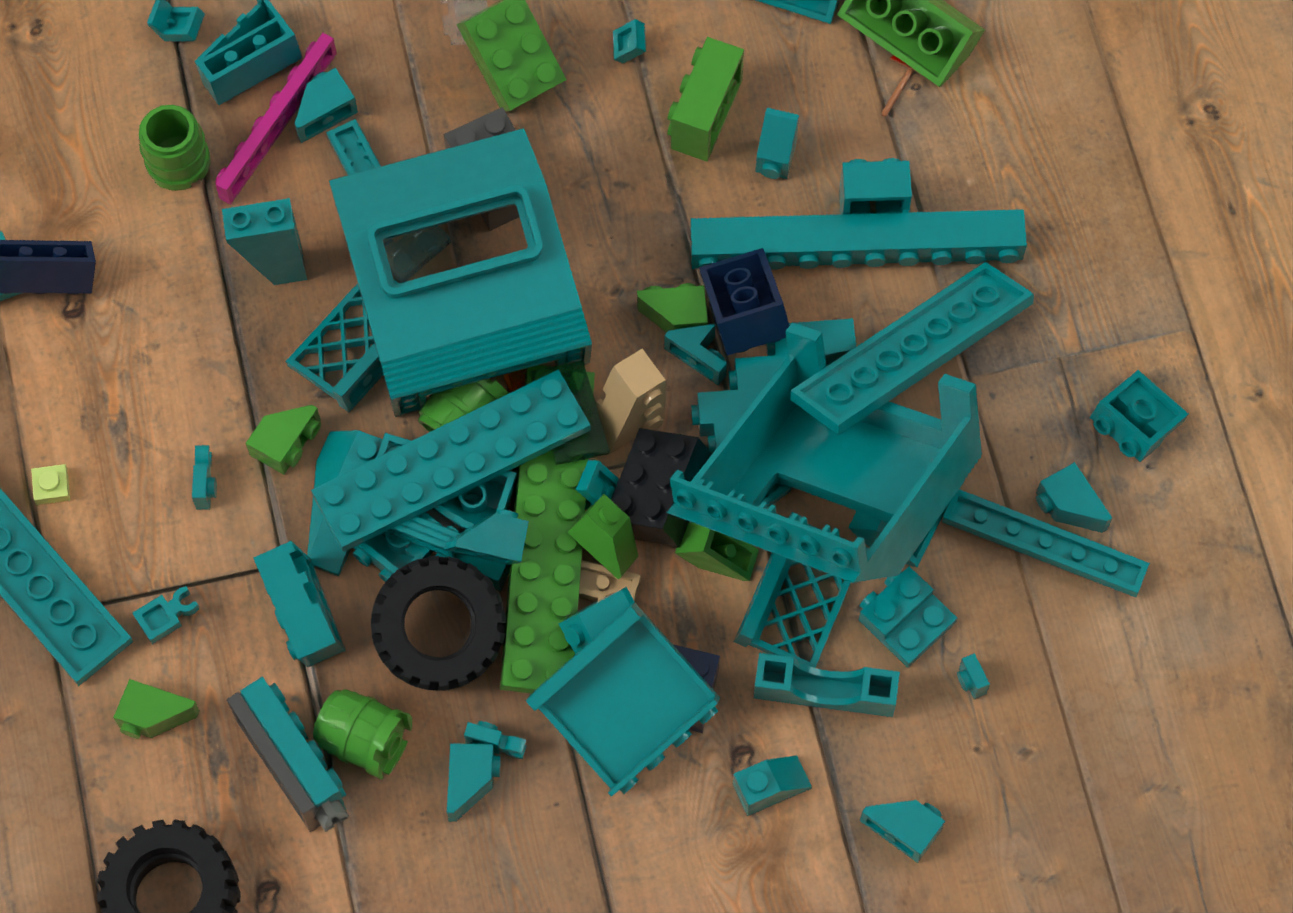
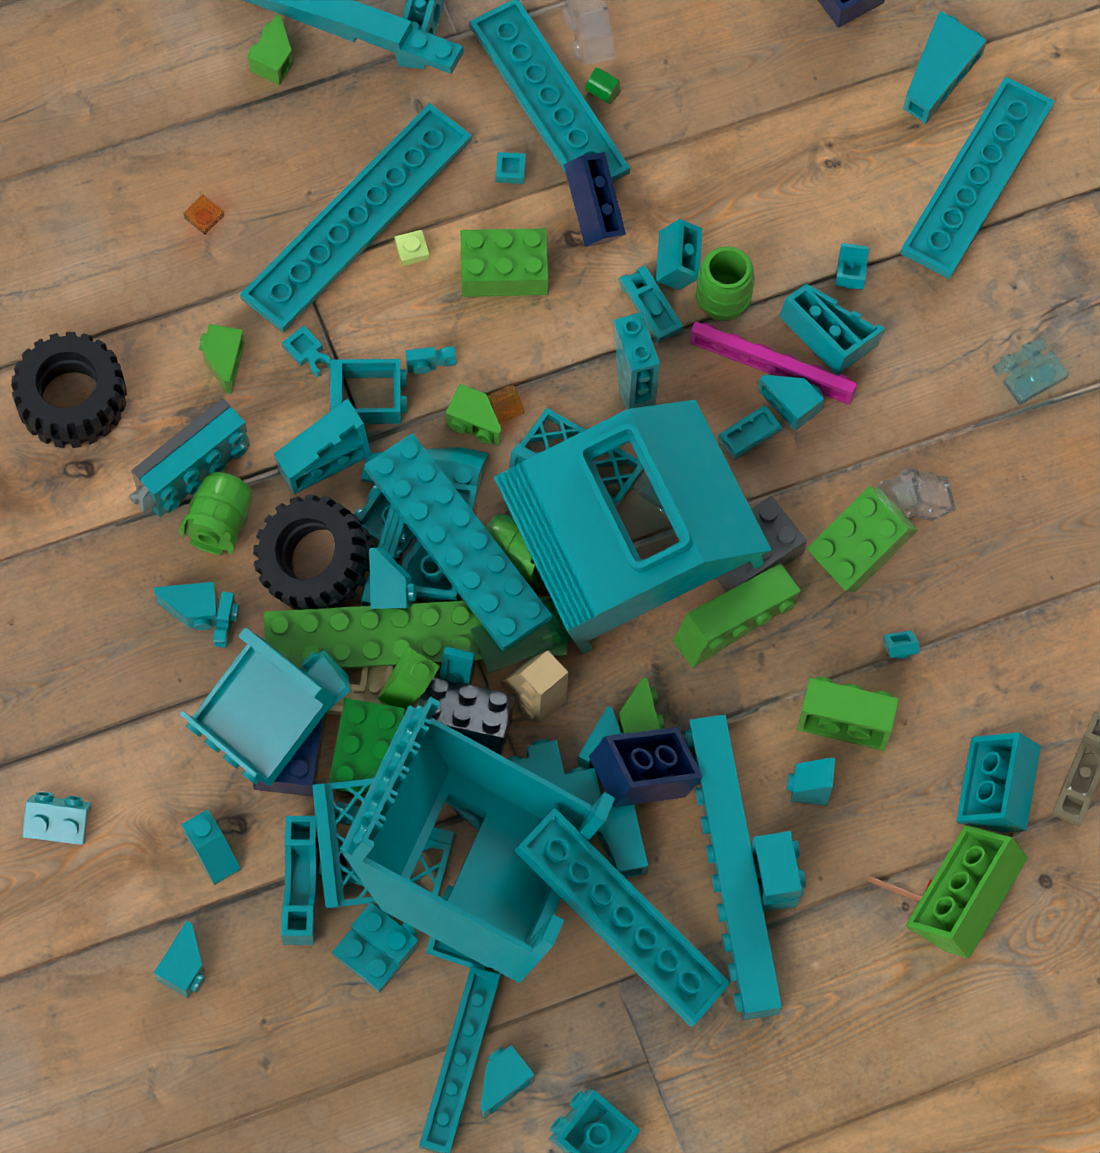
camera: 80 degrees right, 0 degrees up
(95, 381) = (504, 262): none -> bright green brick
(125, 191) = (679, 254): none -> teal brick
(177, 233) = (652, 303): none -> teal plate
(227, 584) = (370, 369): none -> teal window
(273, 398) = (506, 403): none -> clear orange plate
(577, 196) = (735, 614): none -> bright green wedge
(684, 593) = (363, 741): none -> green brick
(801, 647) = (329, 845): none -> teal fence
(972, 677) = (324, 1007): teal plate -> none

